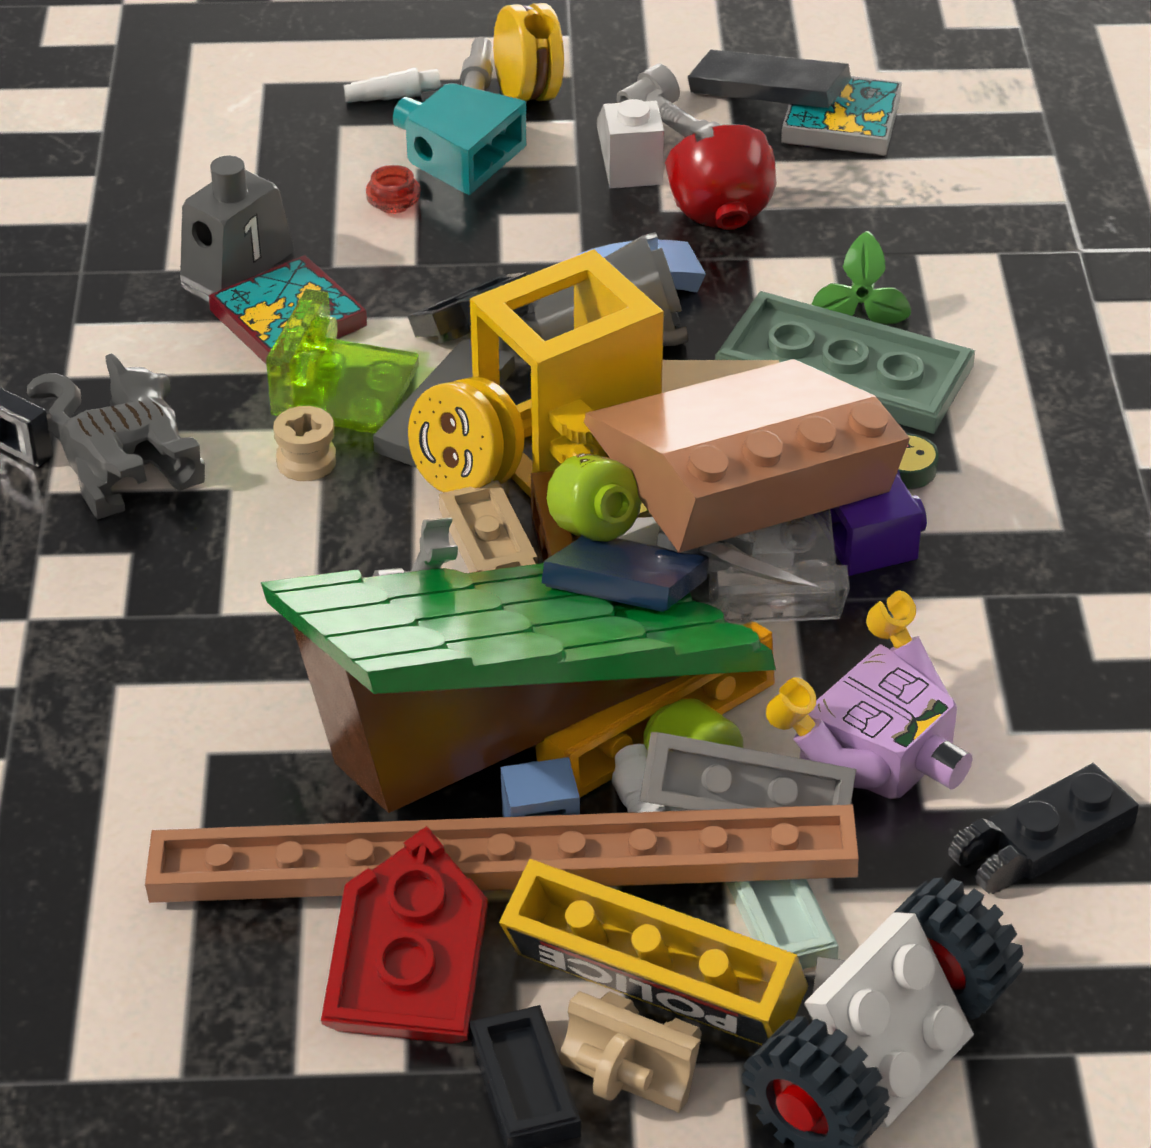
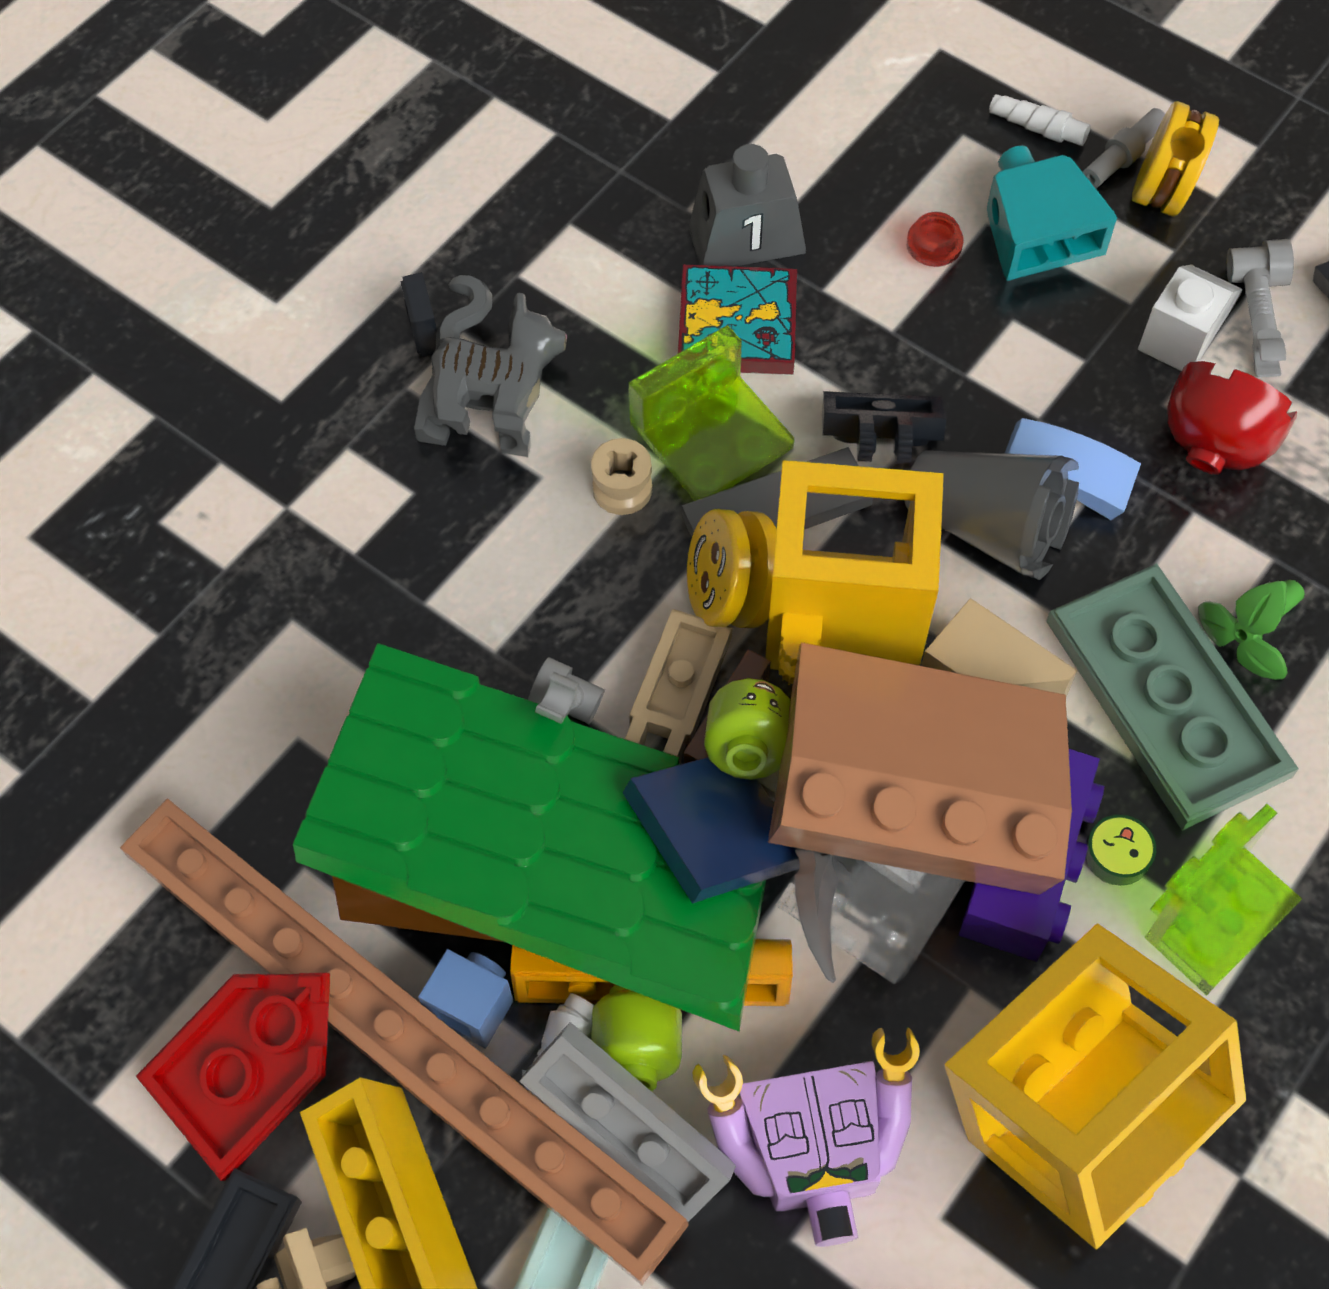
camera: 40 degrees right, 20 degrees up
(1012, 448) = (1220, 904): none -> clear neon green bracket
(1046, 587) = (1090, 1091): none -> yellow piece

